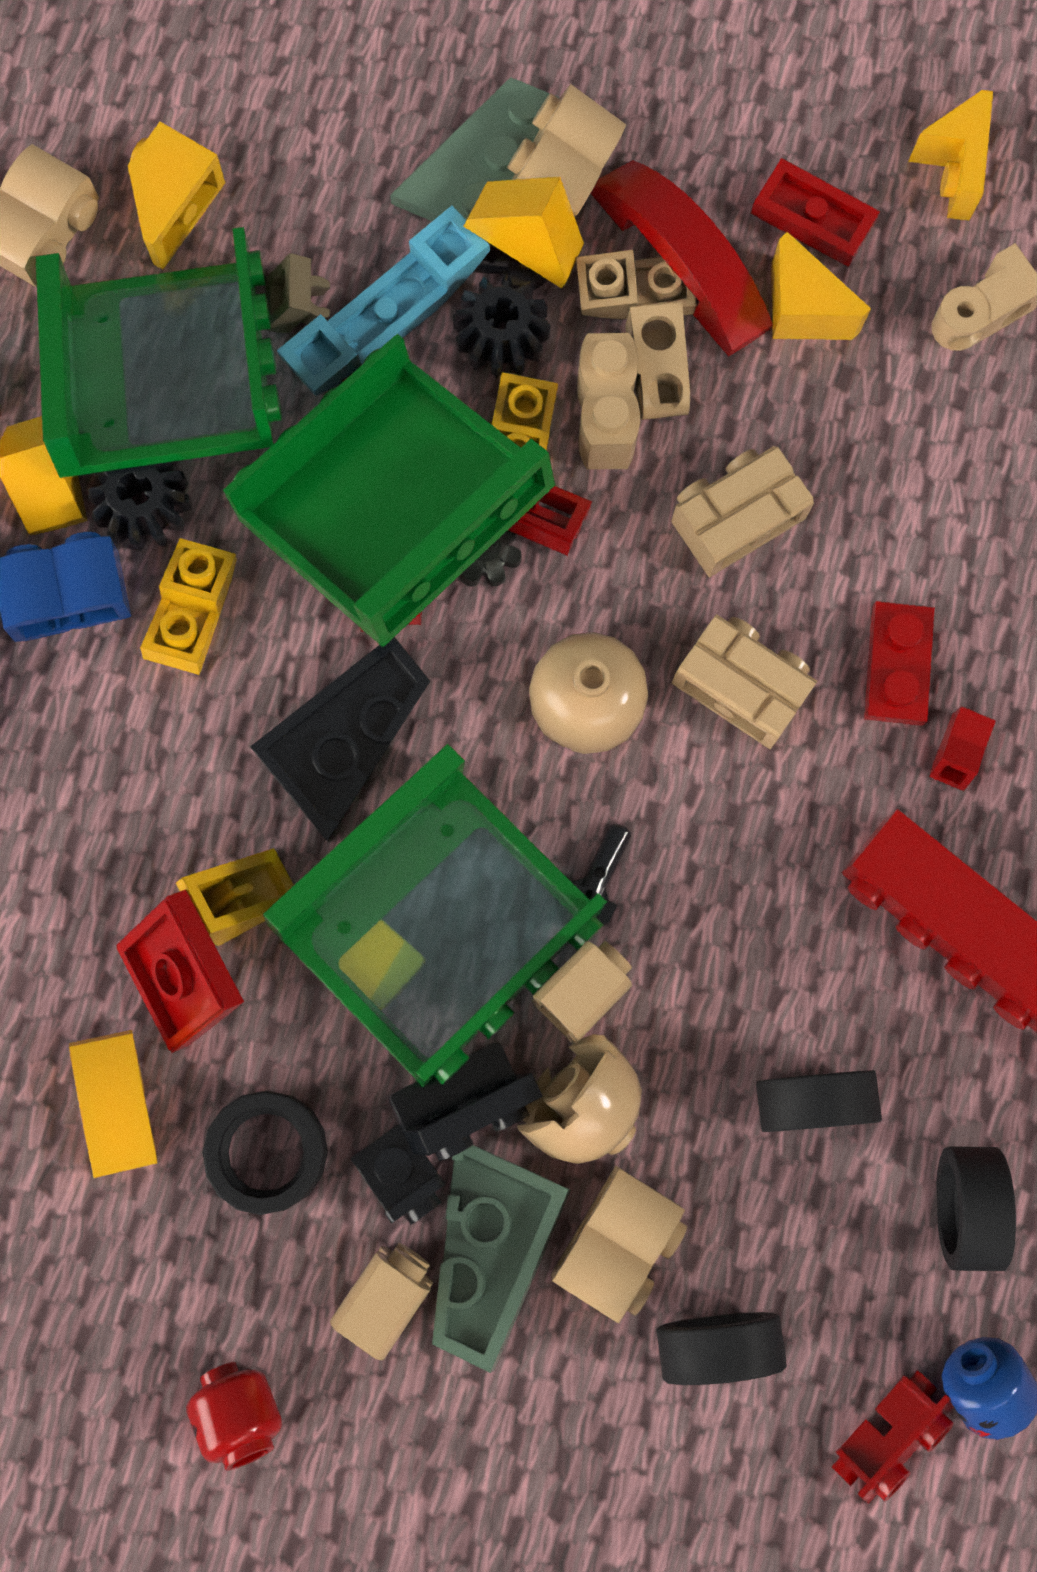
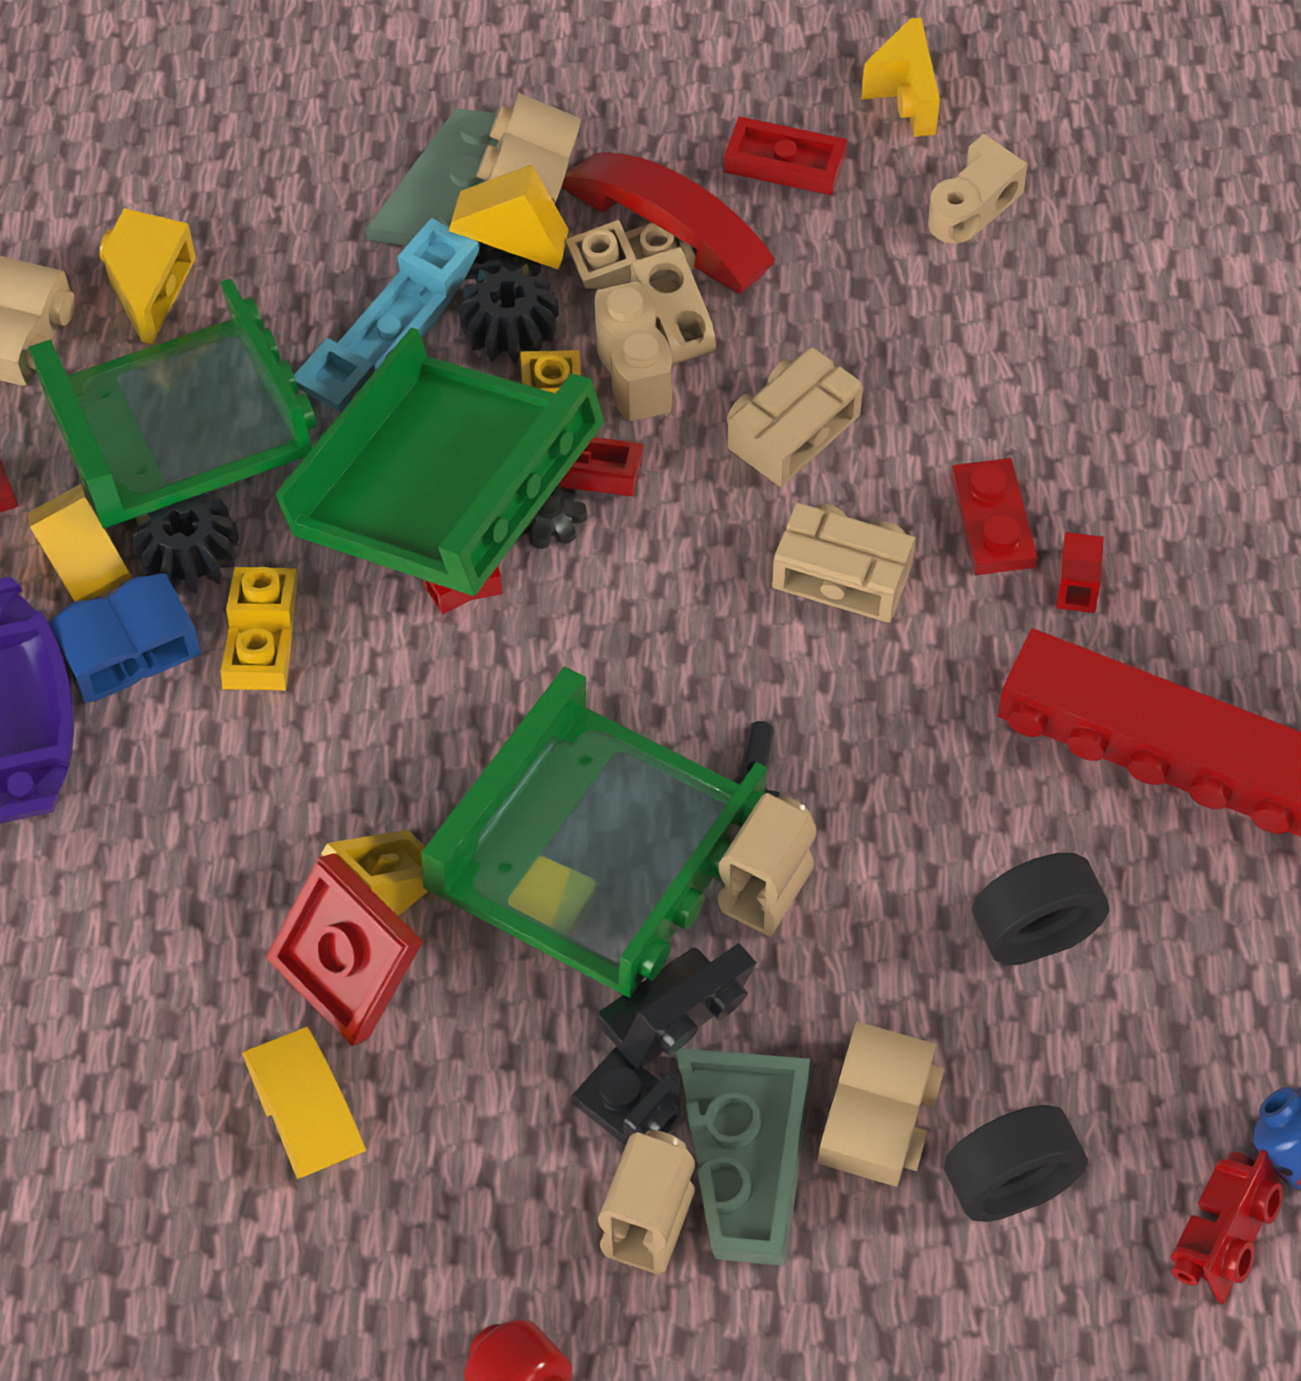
camera: 10 degrees left, 20 degrees down
(218, 1142) = (481, 1161): black tyre -> none
(290, 293) = (295, 326): dark tan tile -> none
(341, 734) = (450, 703): black wing -> none
(586, 1105) = (805, 975): tan cylinder -> none
(588, 692) = (691, 609): tan cylinder -> none
(810, 298) = (805, 225): yellow slope -> none
(975, 1209) = (1231, 968): black tyre -> none

